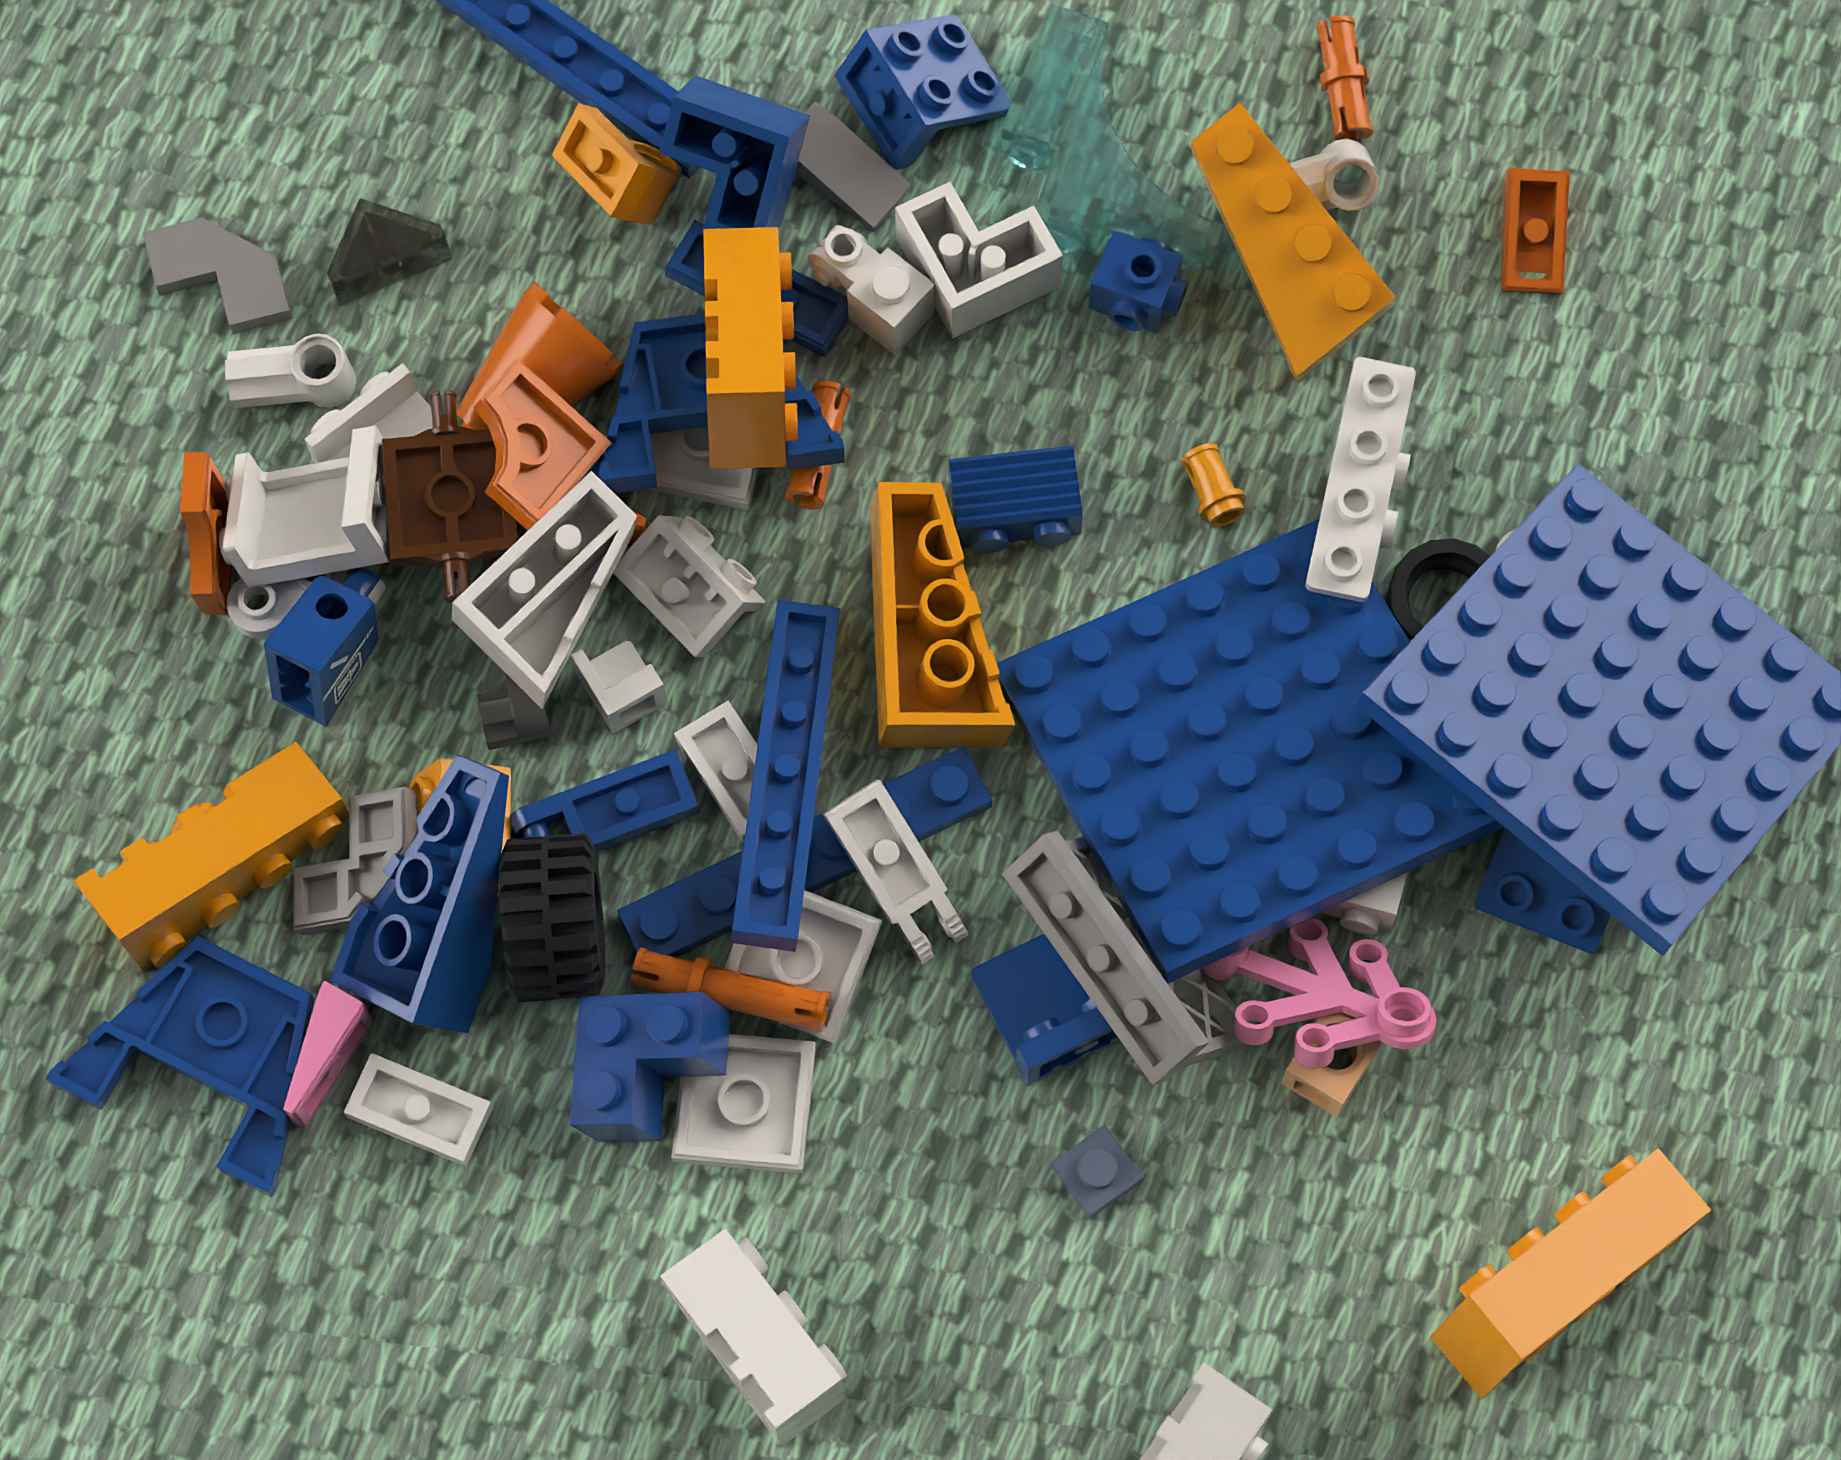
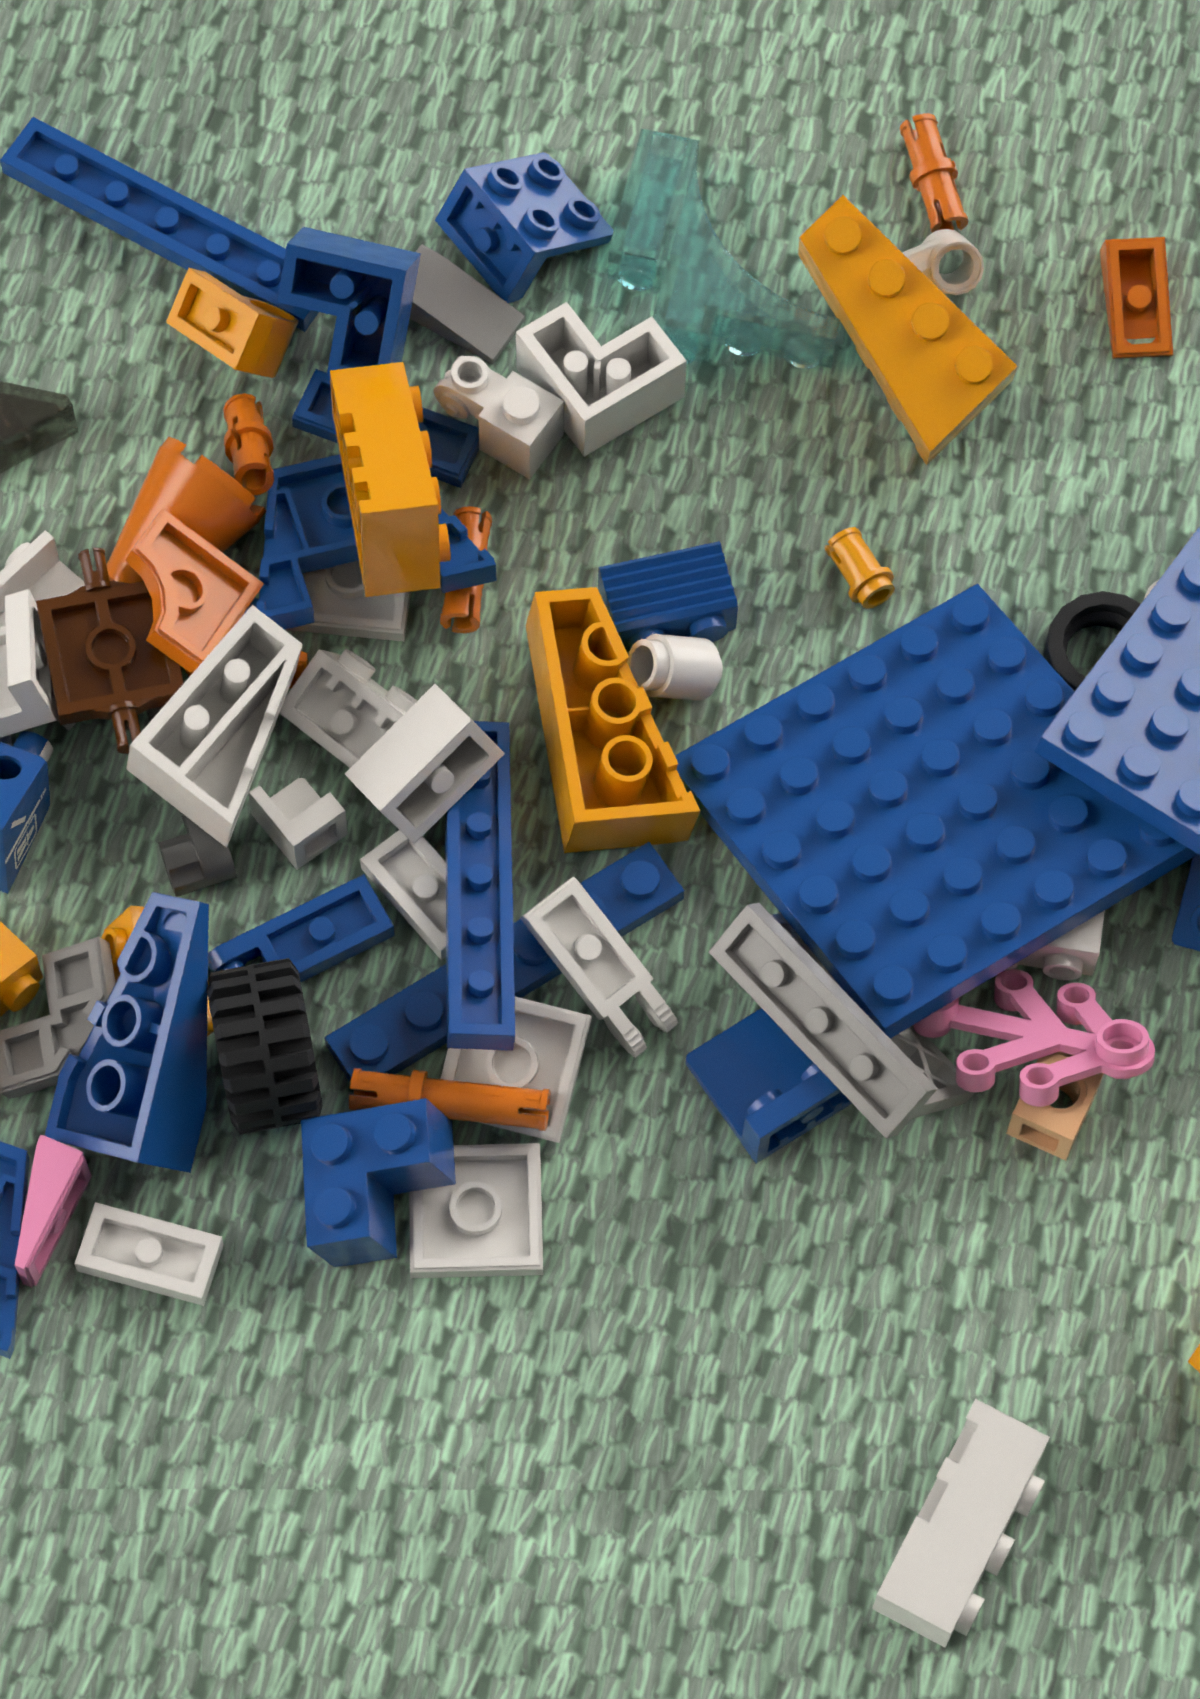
camera: 10 degrees left, 5 degrees down
(616, 293) = (248, 443): none -> orange pin
(746, 646) = (424, 763): none -> white brick
(756, 1335) = (519, 1435): white wedge -> none
(1012, 570) = (676, 666): none -> white brick
(1097, 1172) = (836, 1238): sand blue plate -> none
(1138, 282) = (761, 383): blue brick -> none
(1361, 480) = (1007, 544): white bracket -> none

